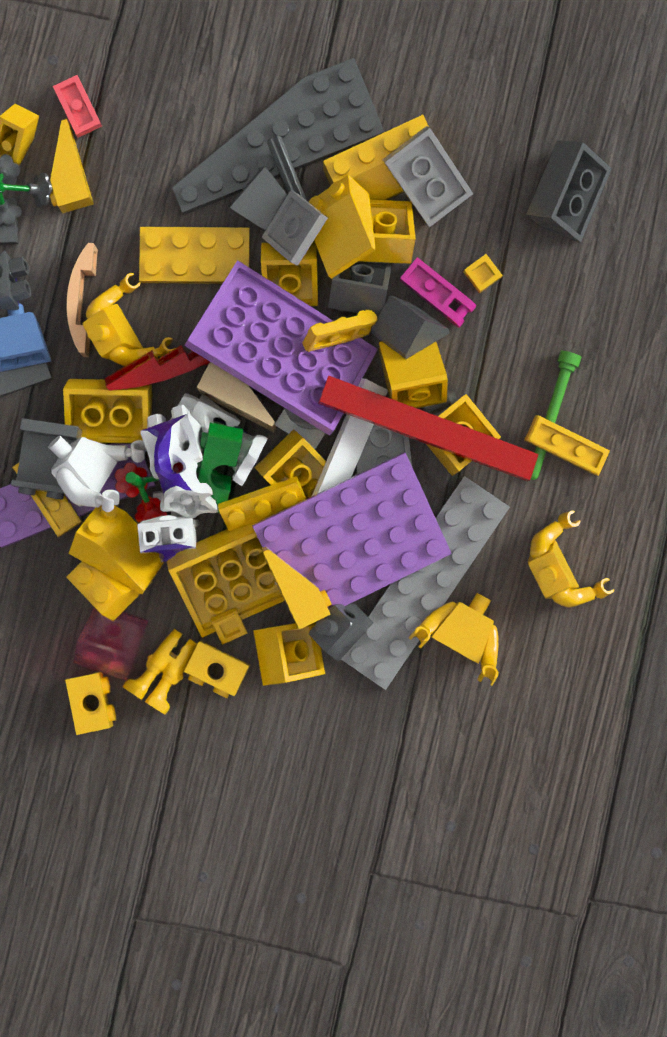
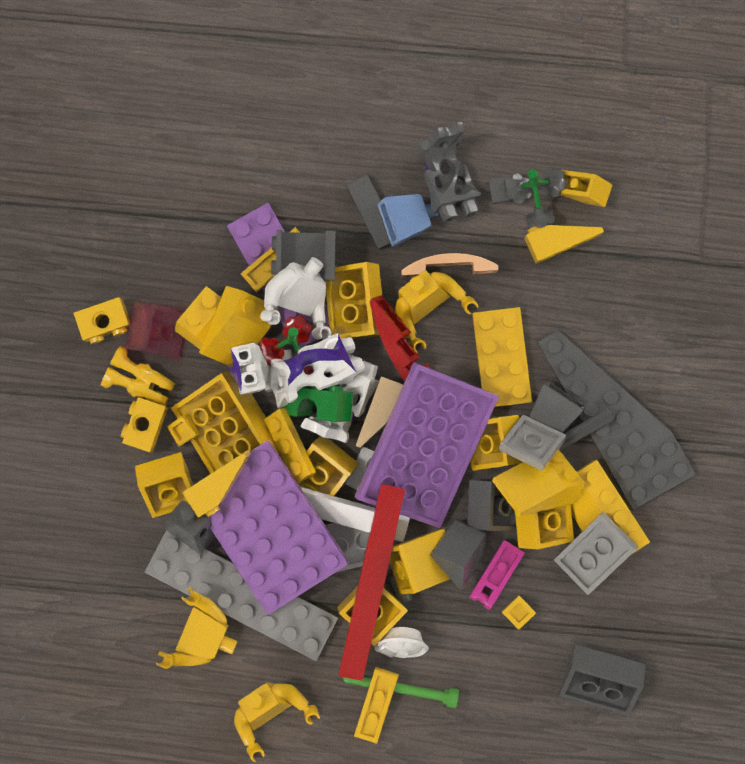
camera: 90 degrees right, 0 degrees up
(77, 106) = (618, 238): coral plate -> none
(339, 331) = (448, 493): yellow hinge -> none
(502, 406) = (402, 643): none -> white piece

